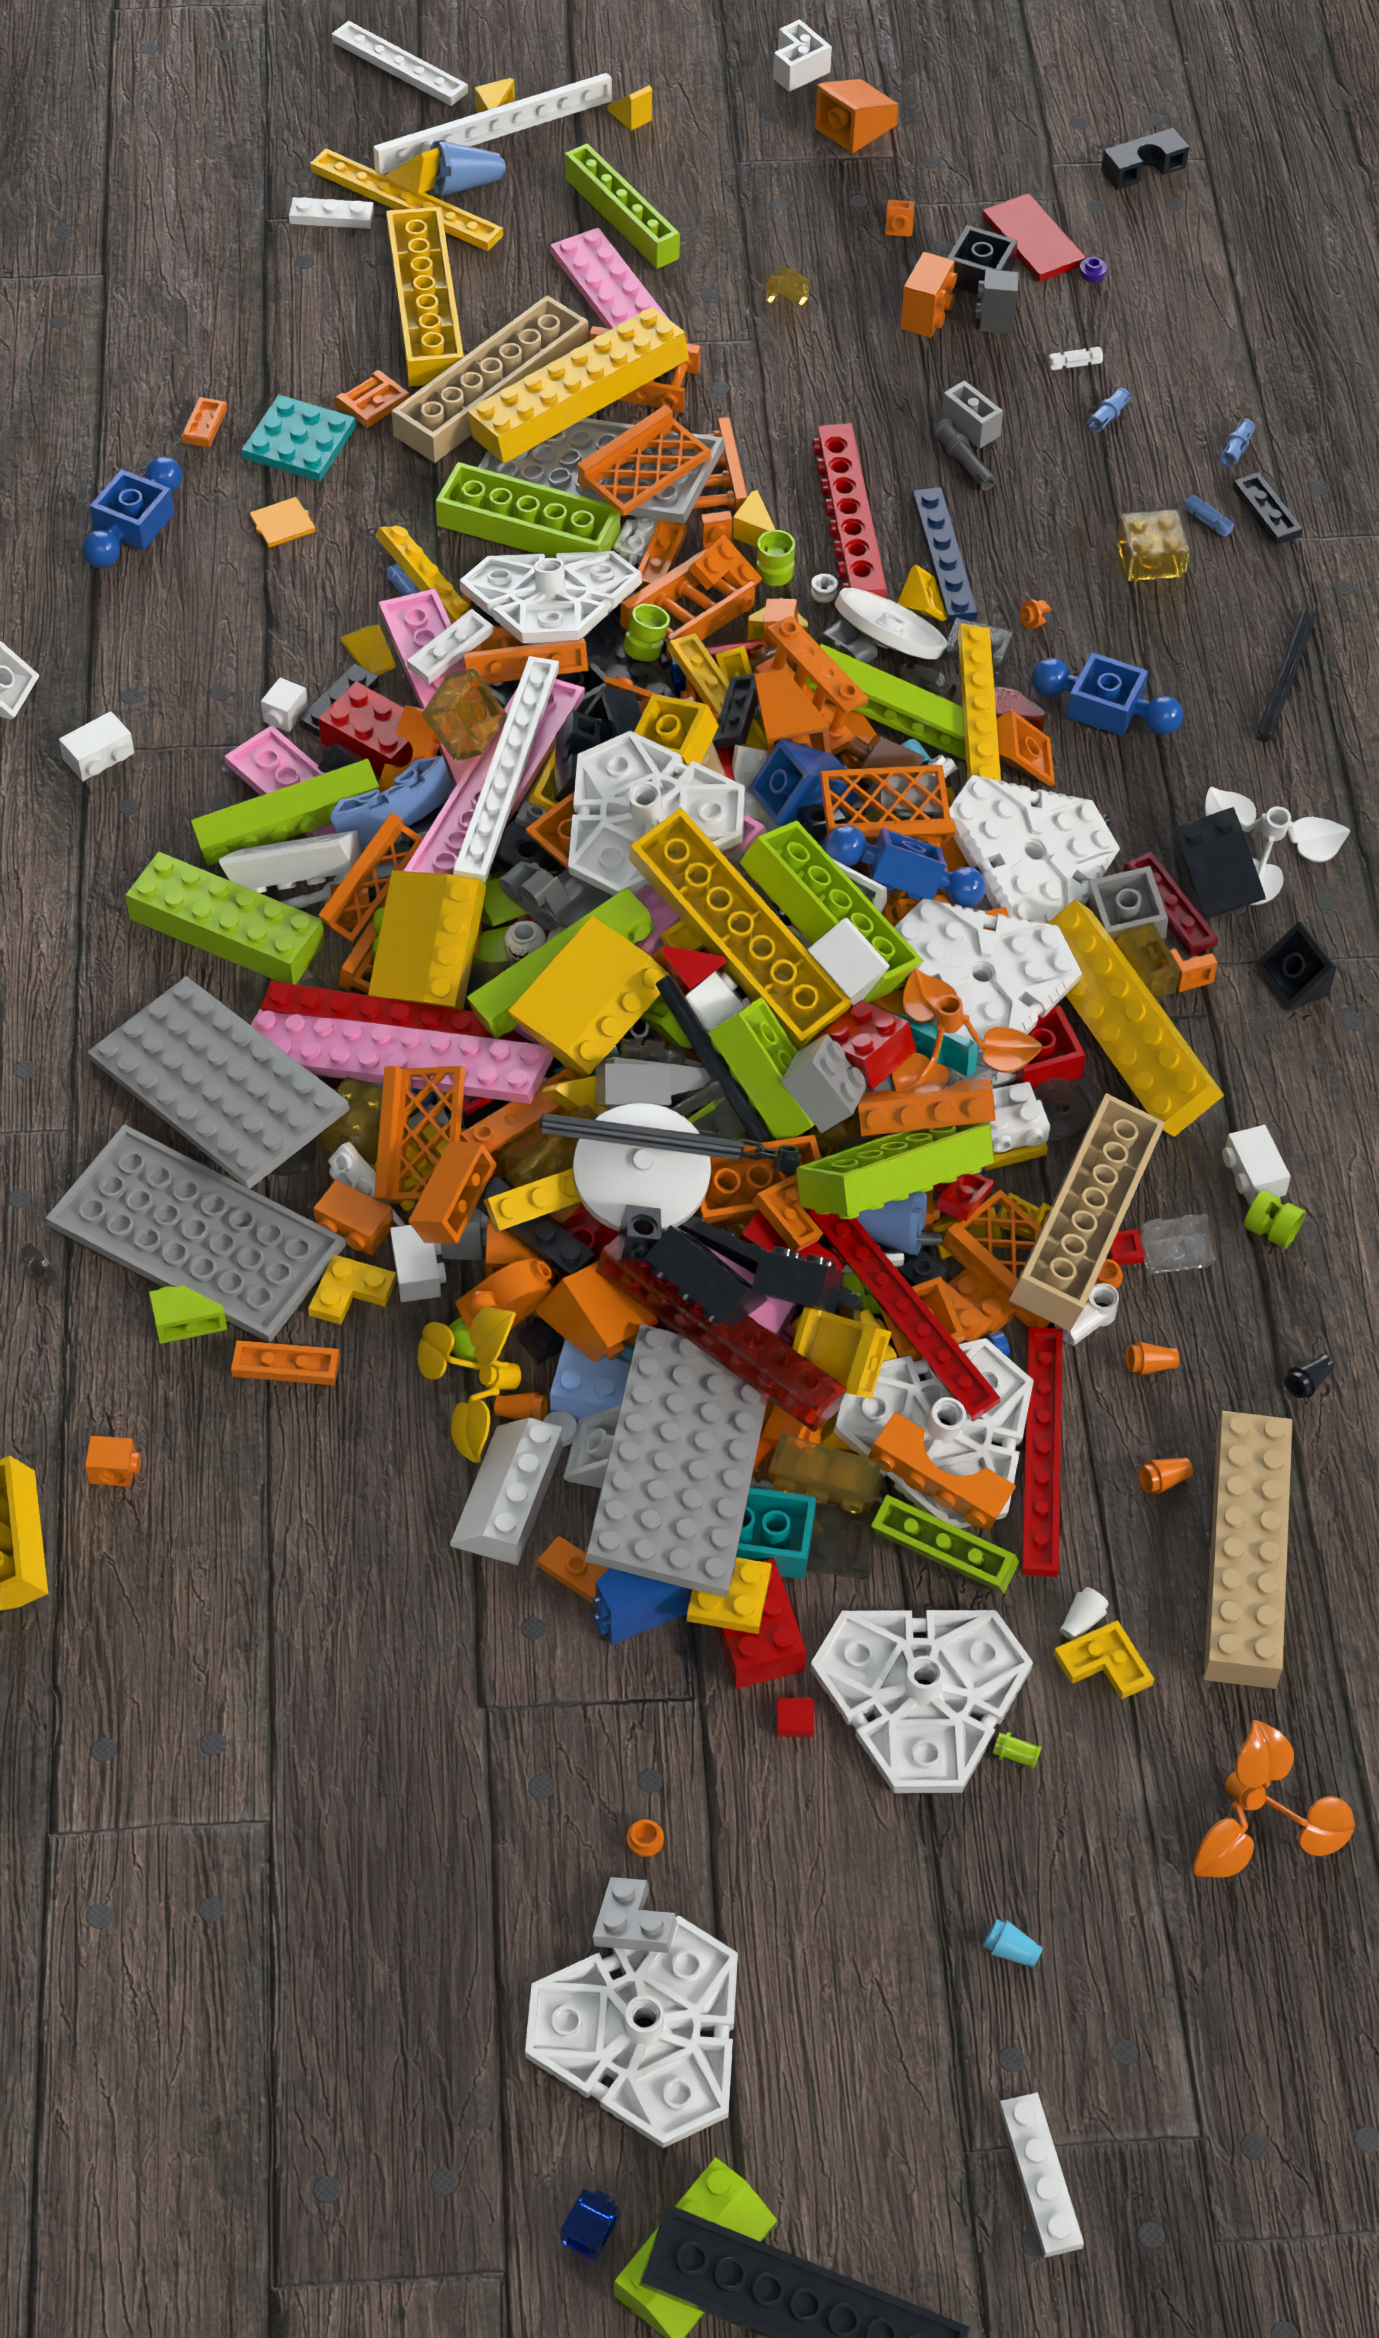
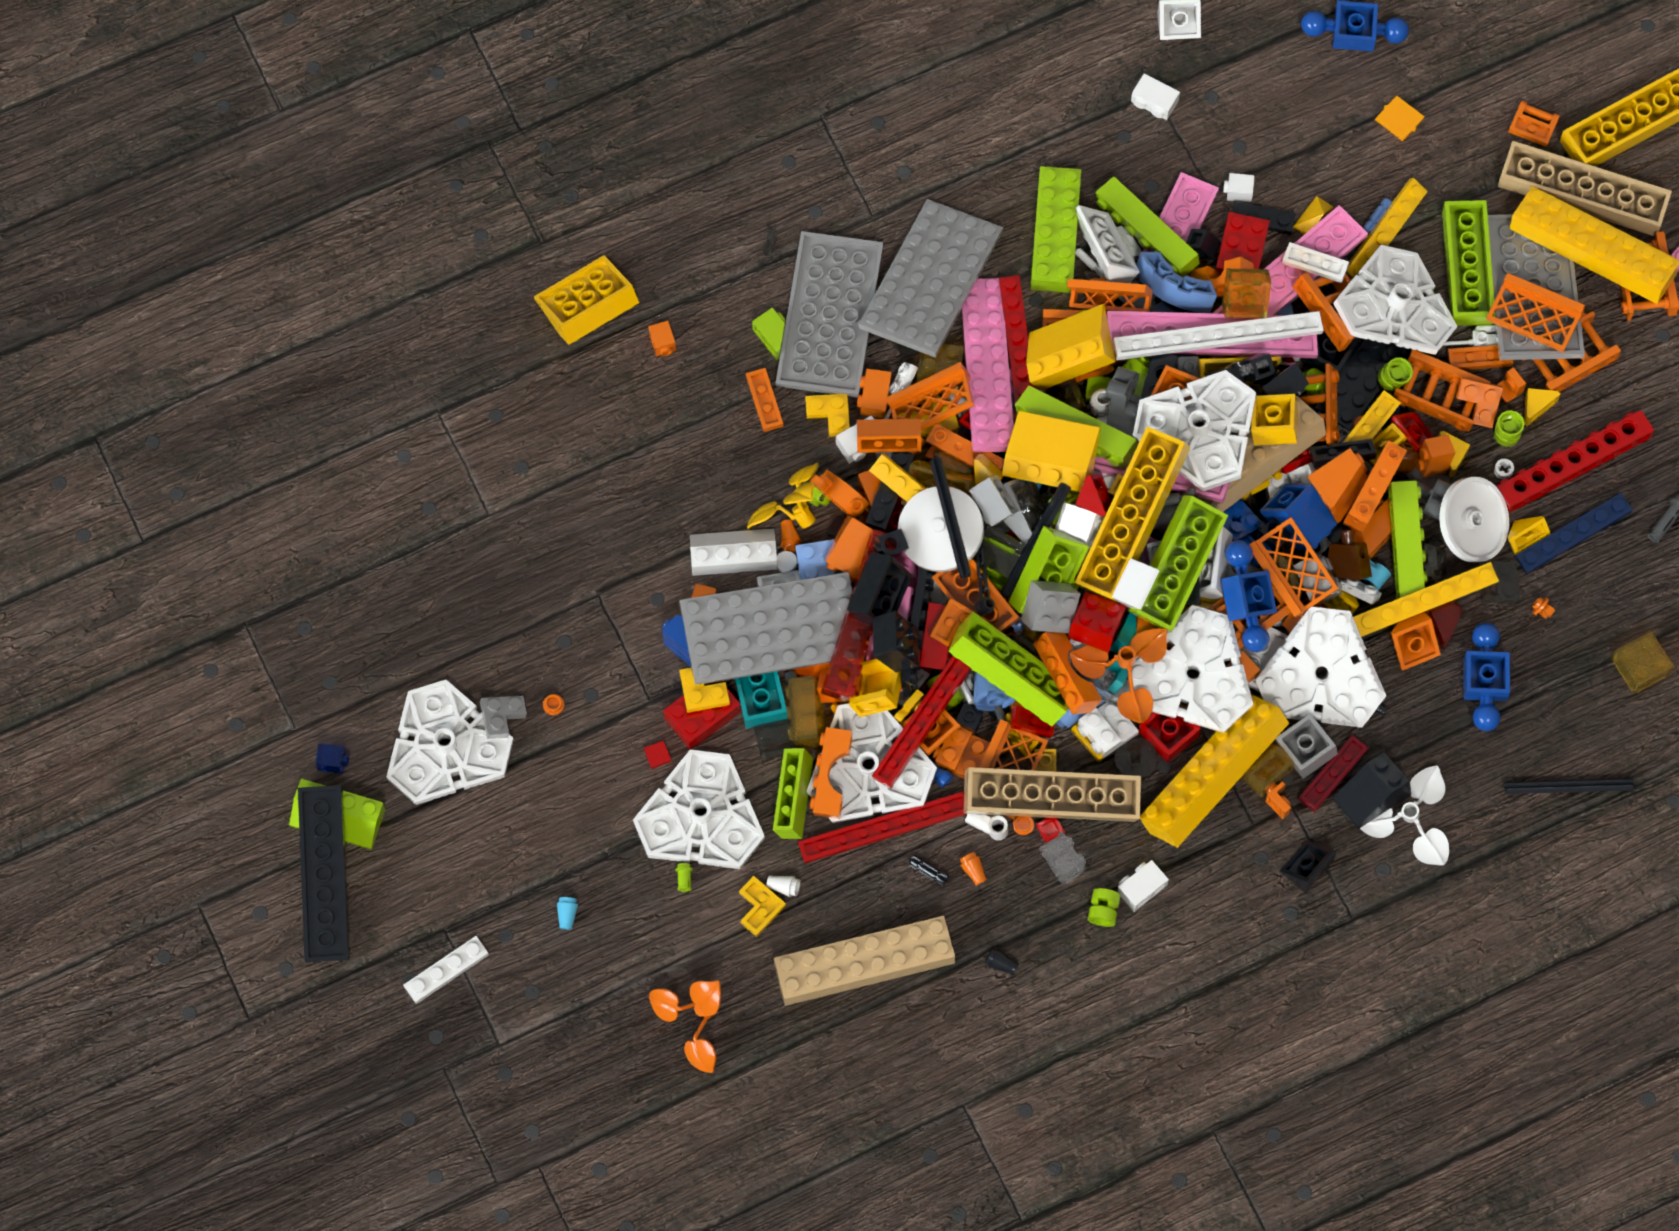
camera: 70 degrees right, 15 degrees up
(204, 422) = (1460, 32): orange plate -> none
(299, 438) = (1478, 95): teal plate -> none
(1131, 1417) = (929, 870): none -> black axle
(1164, 1473) = (896, 900): orange cone -> none

